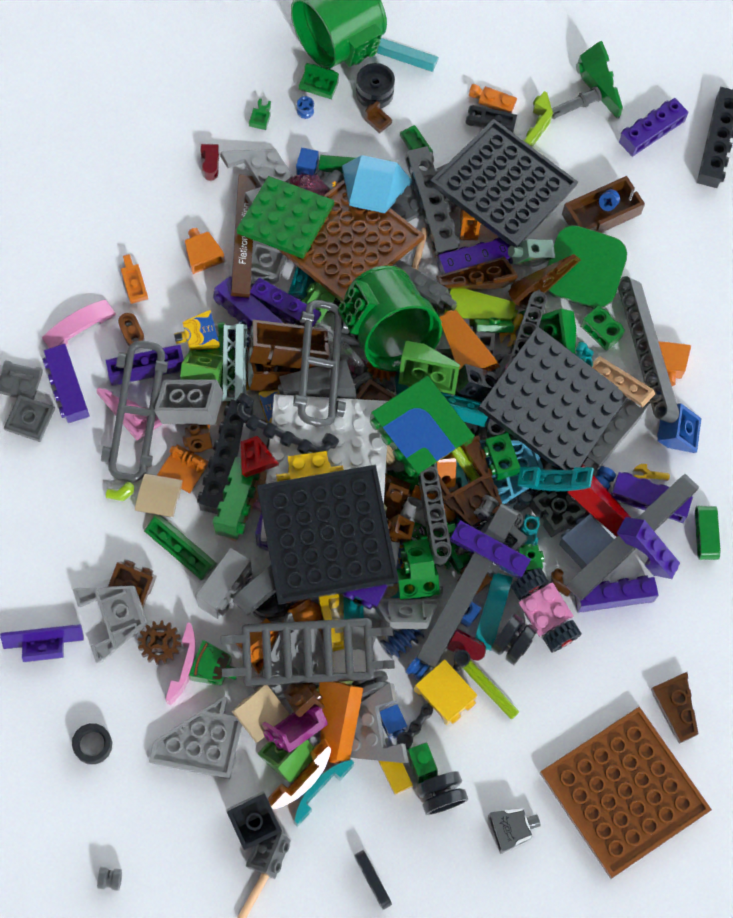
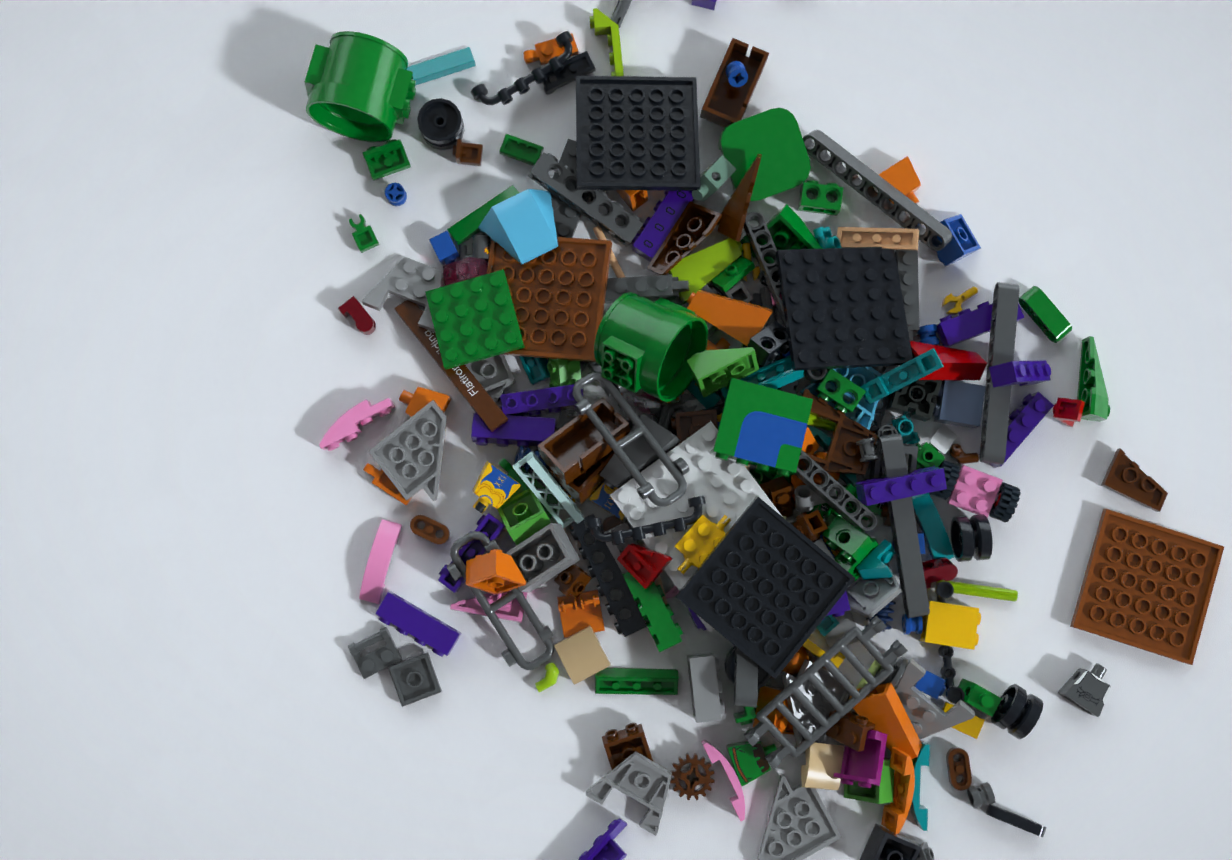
camera: 40 degrees left, 15 degrees up
(139, 221) = (348, 424): none -> bright pink slope
(147, 382) = (493, 572): none -> orange slope
(166, 269) = (414, 452): none -> light grey wing
(234, 627) = (745, 717): none -> green bracket
(361, 804) = (959, 767): none -> reddish brown plate
(362, 837) = (981, 795): none -> dark grey wheel
(424, 595) = (874, 564): none -> teal slope
(469, 103) = (522, 84): none -> black bar
(554, 557) = (943, 439): none -> white sticker
(664, 609) = (1068, 411): none -> red bracket
(695, 618) = (1091, 383): none -> green wedge

